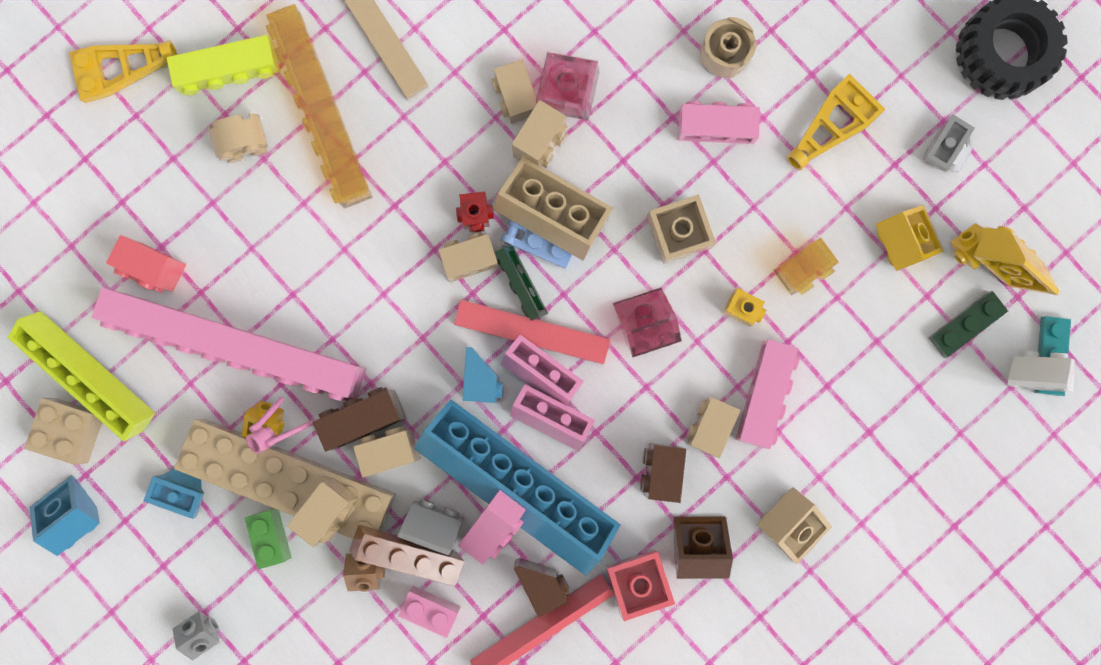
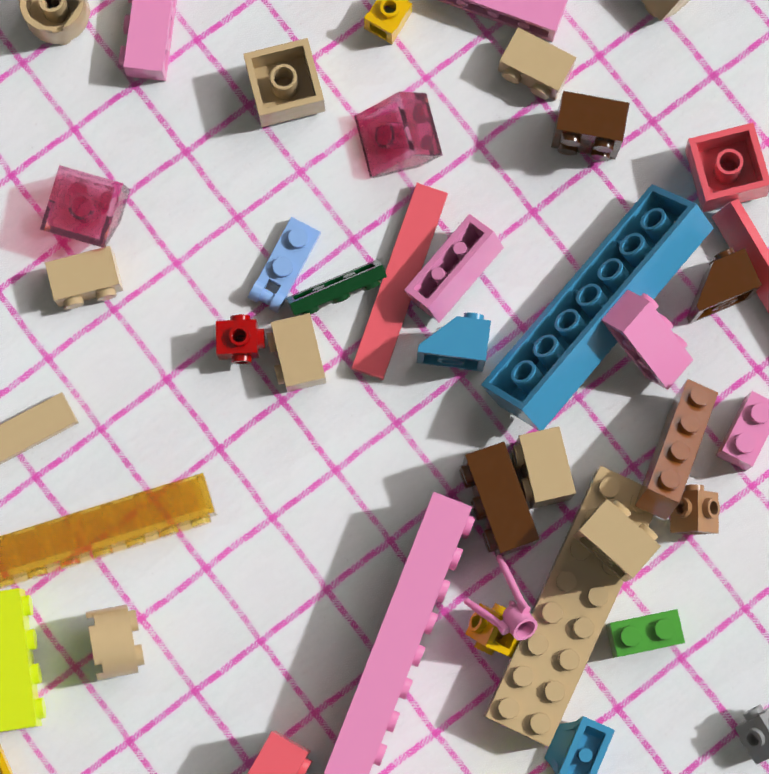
camera: 85 degrees left, 5 degrees down
(431, 526) = (641, 419): light grey slope -> none
(540, 135) = (149, 247): tan brick -> none
(551, 417) = (513, 259): bright pink brick -> none
(552, 208) = (245, 237): tan brick -> none
(702, 548) = (685, 89): reddish brown slope -> none

